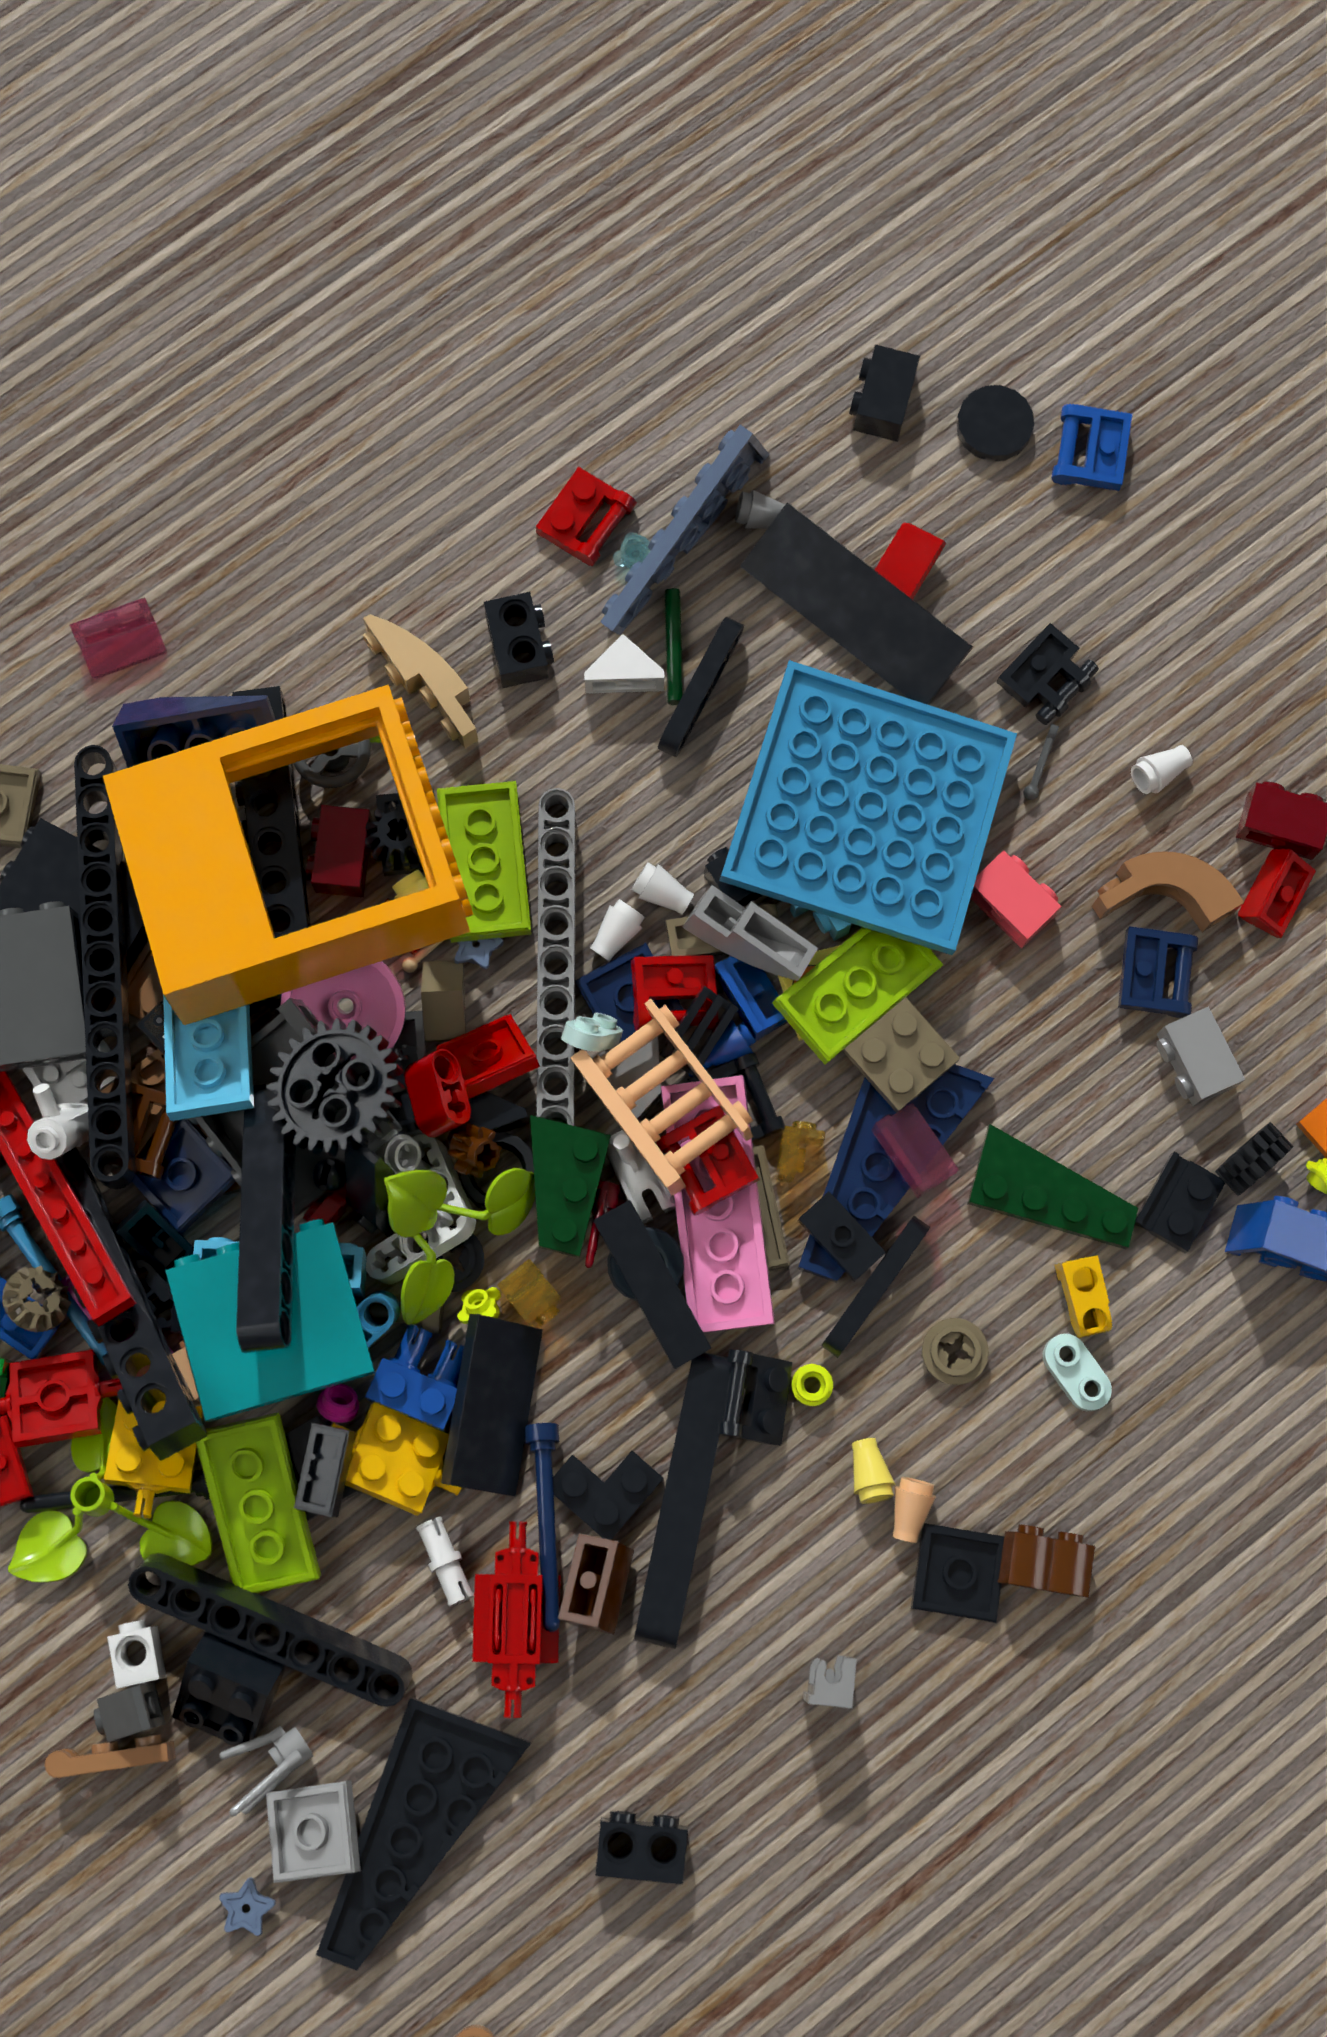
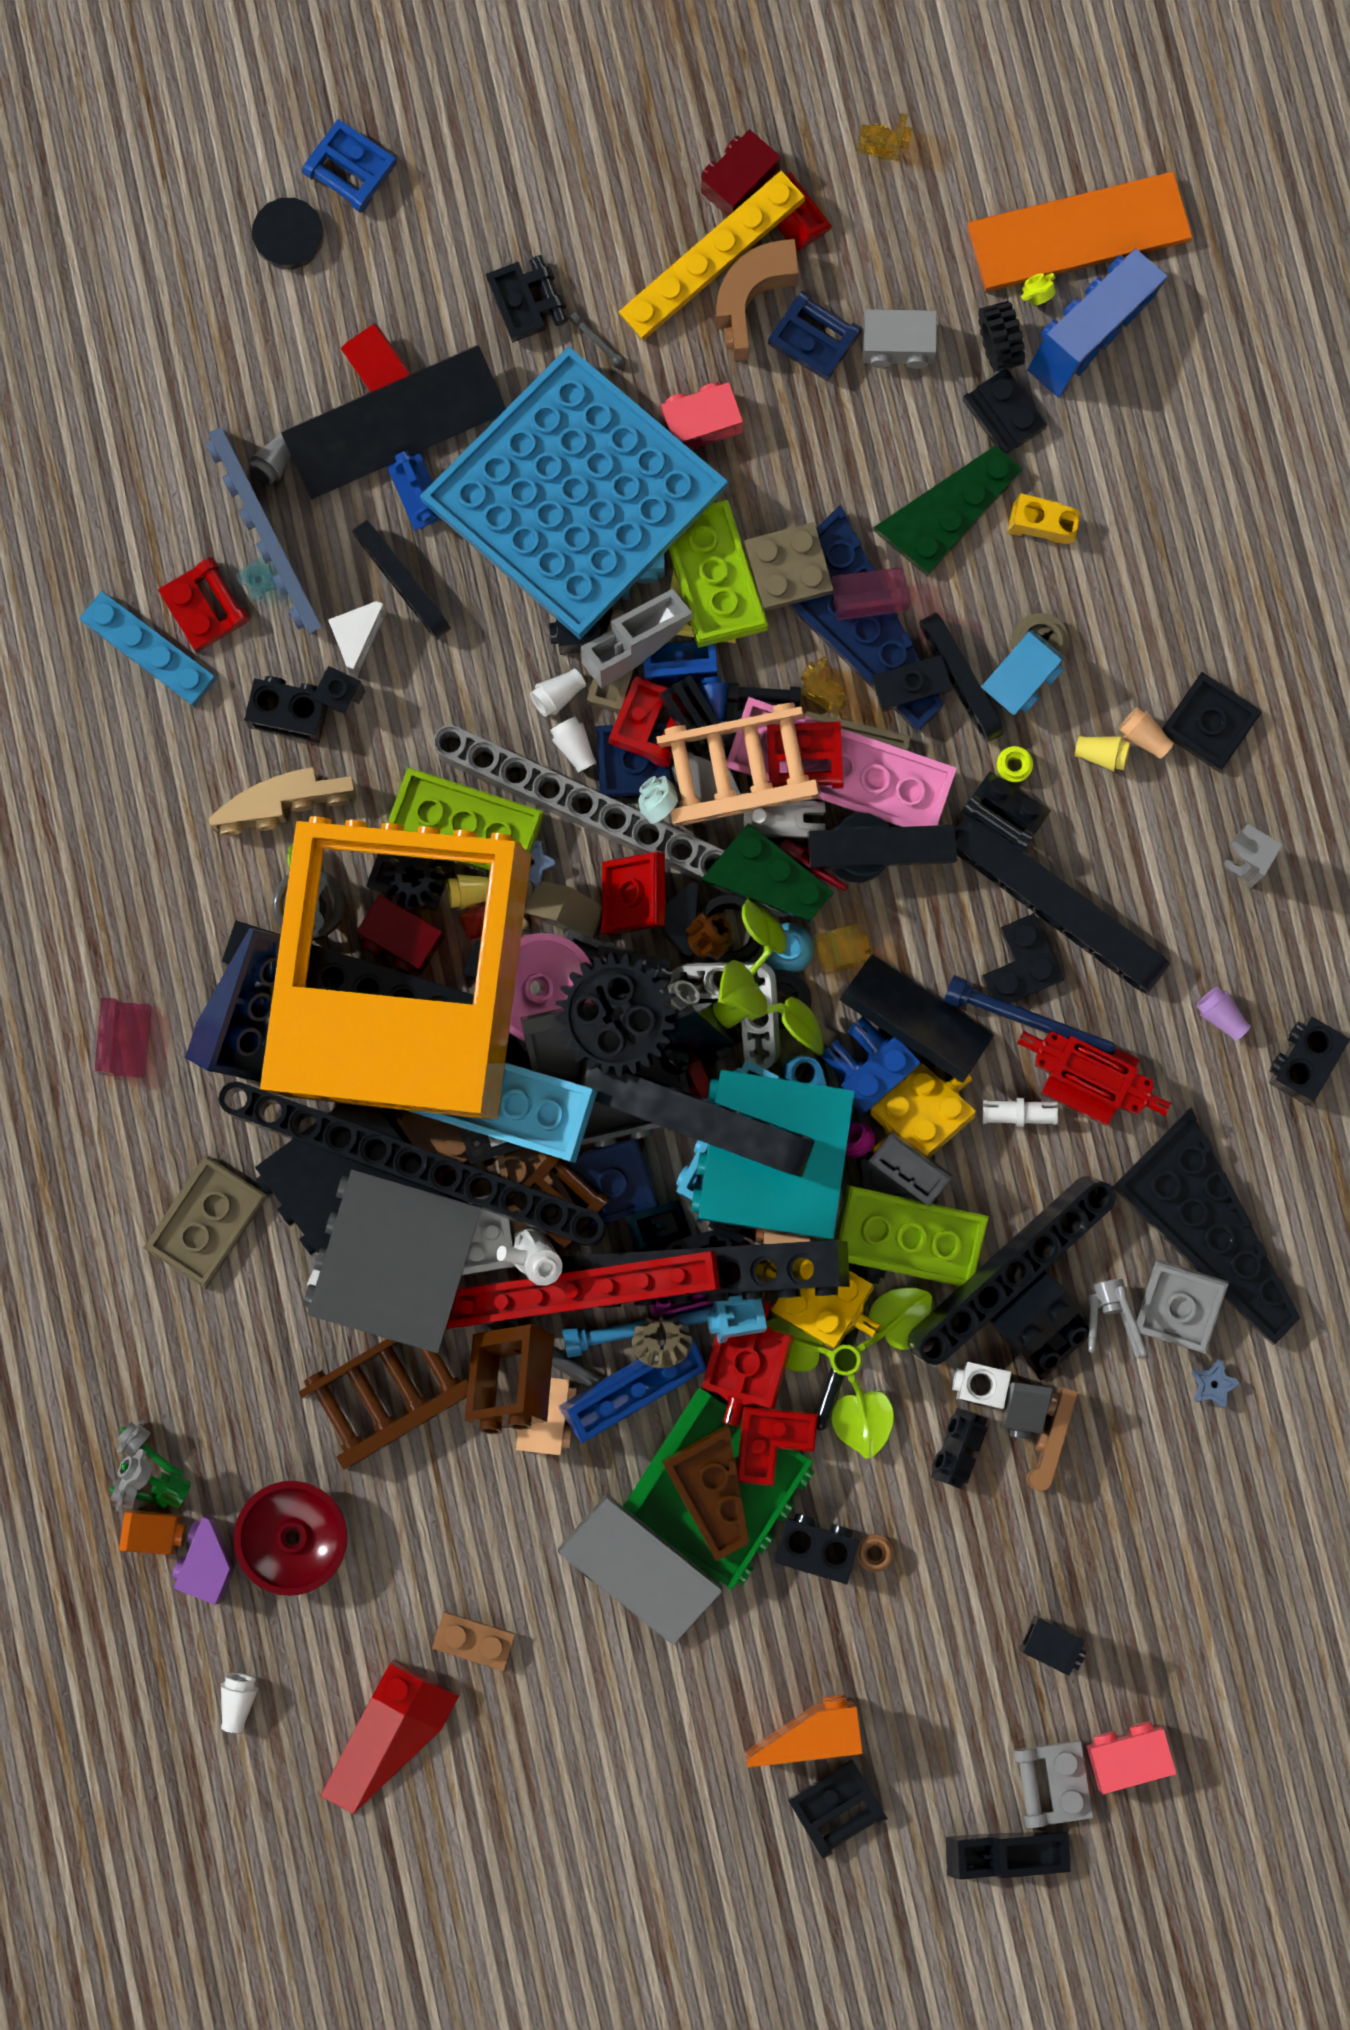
camera: 60 degrees left, 5 degrees up
(80, 1659) = (963, 1432): none -> black hinge
(87, 1365) = (736, 1318): none -> medium azure bracket
(437, 1093) = (651, 938): red beam -> none
(479, 1302) = (822, 997): neon yellow plate -> none
(512, 1249) = (798, 951): none -> medium azure piece
(516, 486) = (147, 649): none -> dark azure plate
(556, 676) = (338, 690): none -> black bracket
(596, 1584) = (1093, 1000): reddish brown brick -> none
(650, 1731) = (1223, 1013): none -> lavender cone
(673, 646) = (352, 585): dark green bar -> none
(809, 647) = (410, 481): none -> blue hinge
(885, 392) = (218, 308): black piece -> none
(909, 1347) = (1024, 672): none -> dark azure piece
(1047, 1563) = (1236, 651): reddish brown brick -> none
(1074, 1374) = (1101, 557): light aqua plate -> none
(1159, 769) = (650, 253): white cone -> none
(1186, 831) = (712, 255): none -> yellow plate

